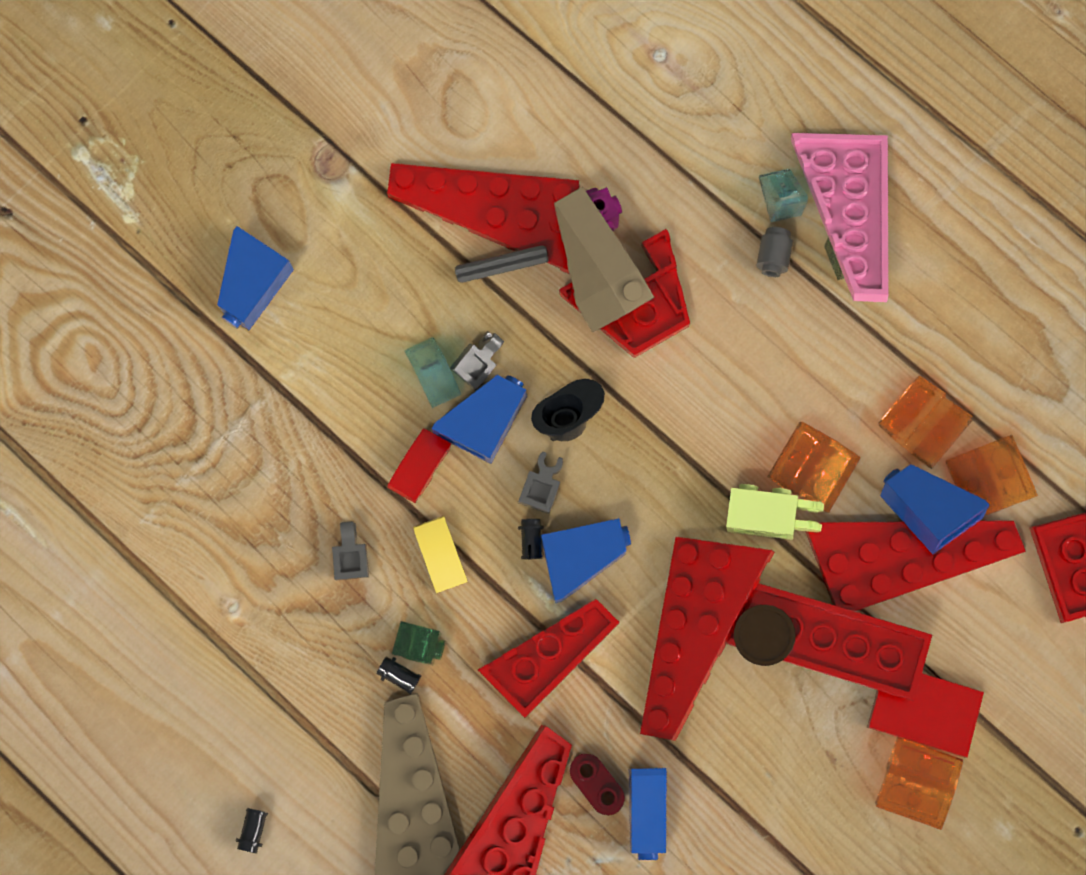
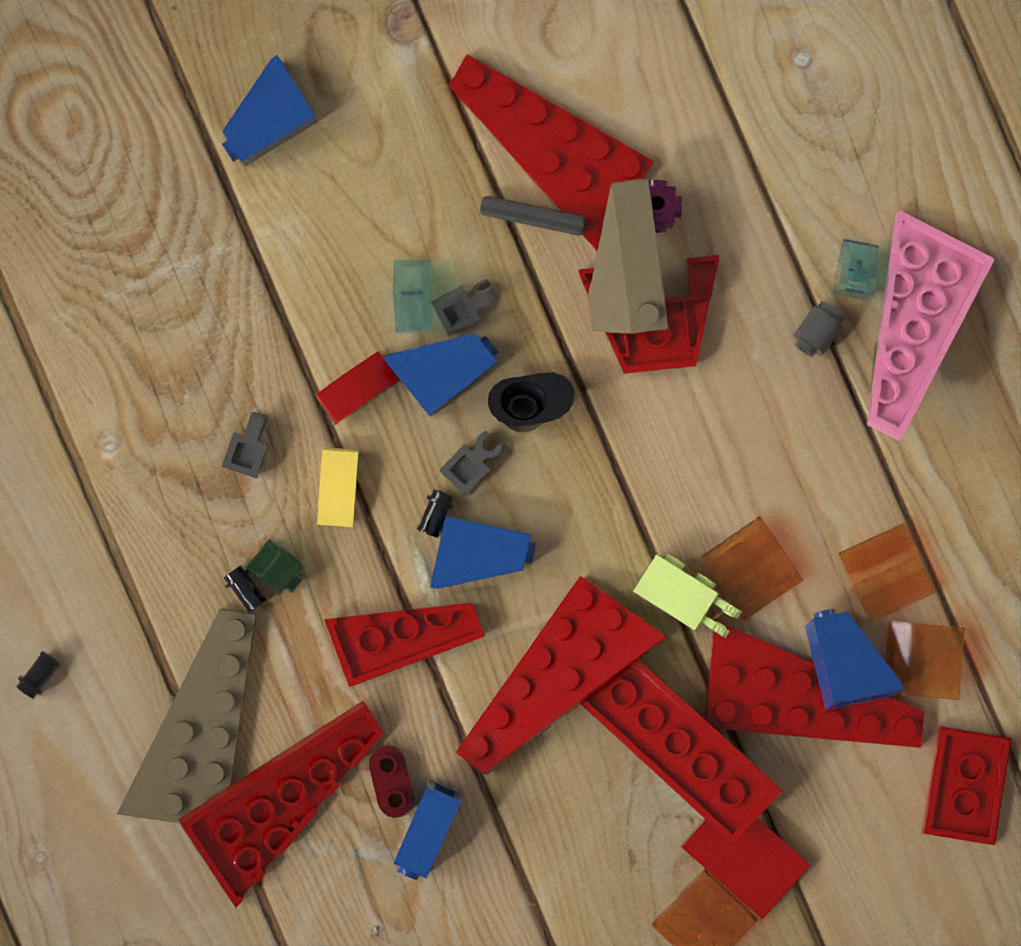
camera: 20 degrees right, 10 degrees up
(764, 635) = (619, 715): dark brown piece -> none

